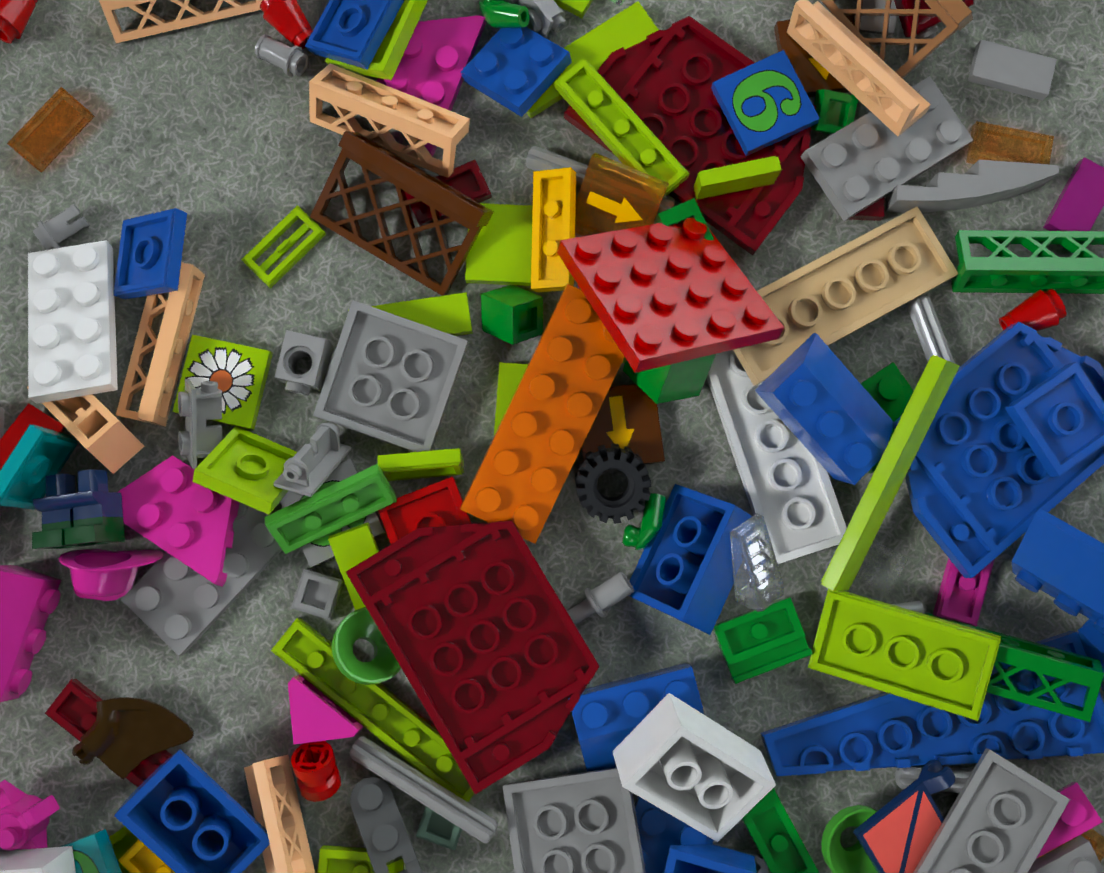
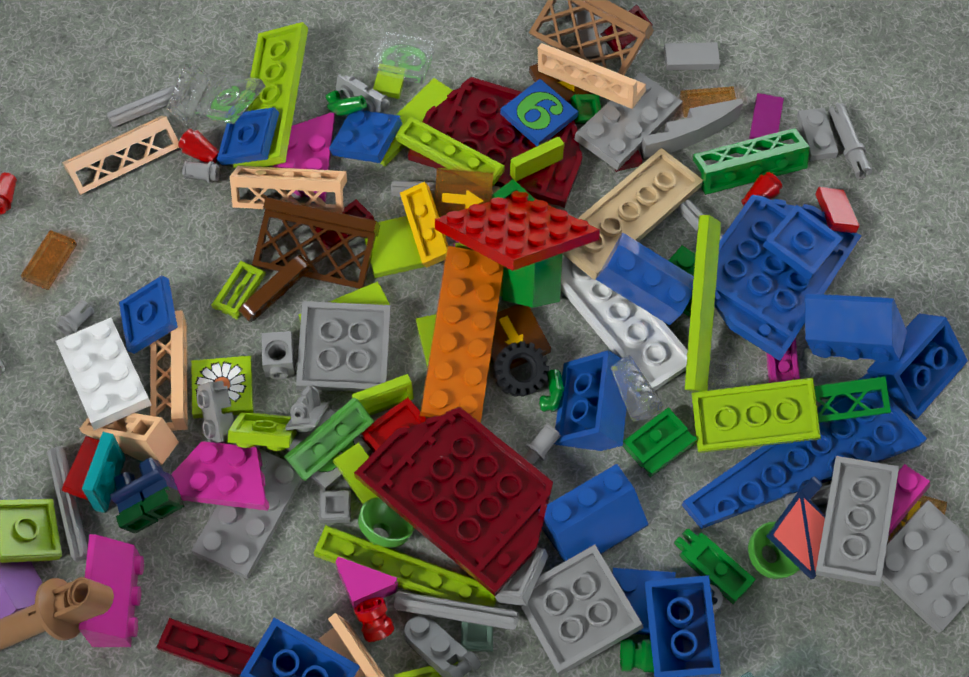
camera: 20 degrees left, 20 degrees down
(106, 573) = (177, 534): dark pink piece -> none
(130, 732) = (226, 637): dark brown arm -> none
(326, 264) = (275, 288): none -> reddish brown beam
(512, 314) = (414, 285): green panel -> none
(514, 789) = (521, 585): none -> light grey tile
(692, 768) = (641, 524): white brick -> none

